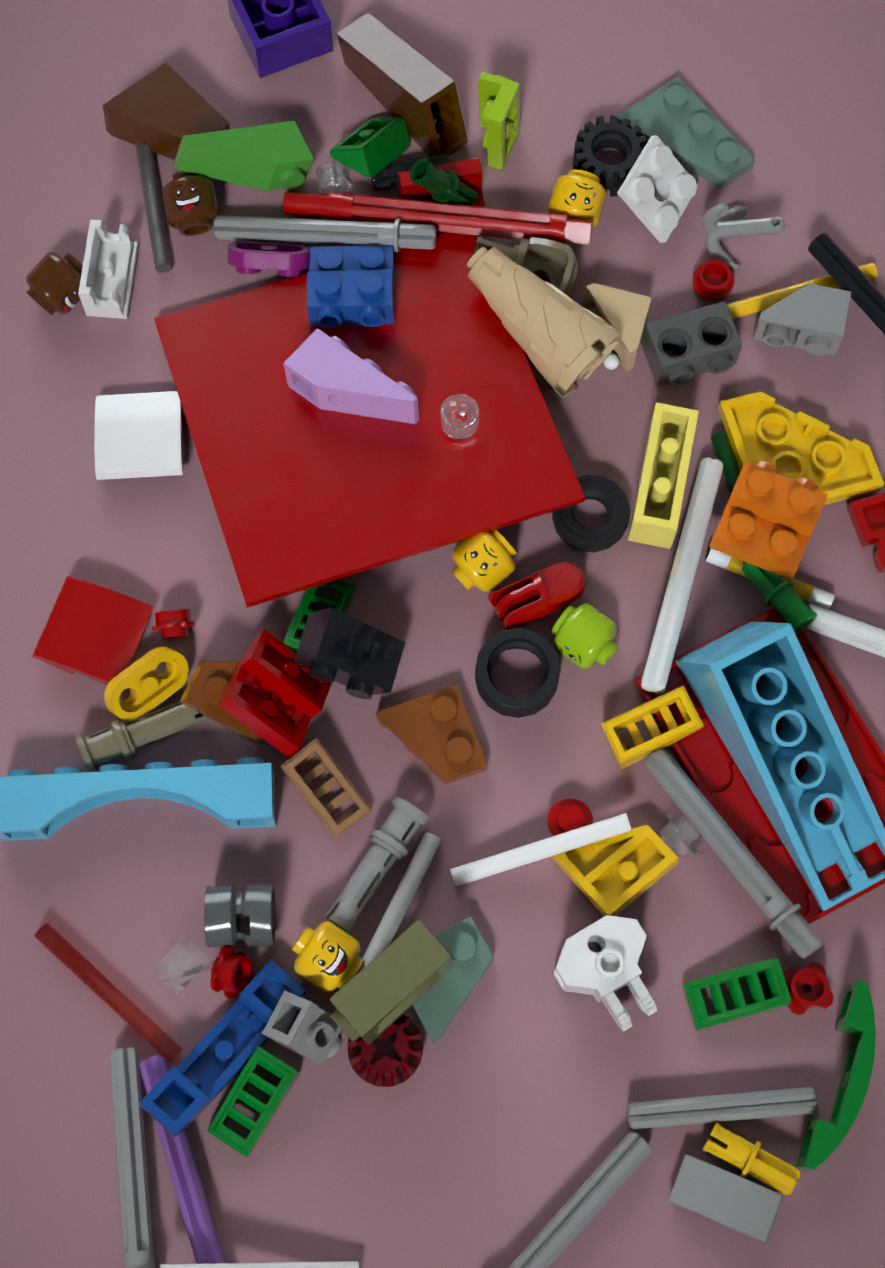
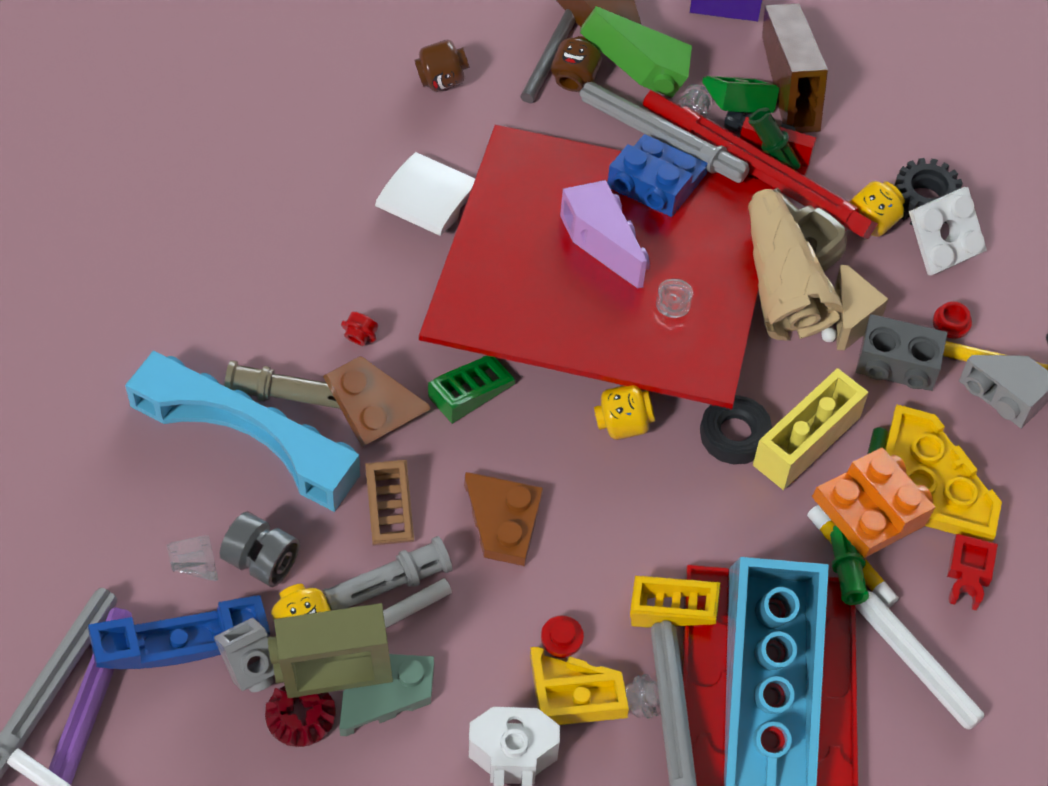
camera: 30 degrees right, 15 degrees down
(92, 630) = (297, 303): red slope -> none
(108, 271) = (483, 77): white hinge -> none
(108, 992) = (126, 550): clear red bar -> none
(145, 686) = (308, 355): yellow plate -> none
(231, 972) = (223, 584): red plate -> none
(238, 1092) = (180, 668): green slope -> none
(252, 256) = (596, 121): magenta plate -> none
(274, 694) = (398, 411): red slope -> none
(349, 653) = (472, 414): black brick -> none
(499, 115) = (851, 120): lime bracket -> none
(525, 640) = (600, 479): black tyre -> none
(538, 594) = (651, 460): red arm -> none
(540, 849) = (523, 640): white bar -> none
(585, 636) = (668, 510): lime head -> none
(682, 576) = (773, 513): white axle -> none
(690, 133) = (1006, 212): sand green wing -> none
(726, 223) = (994, 288): light grey piece -> none

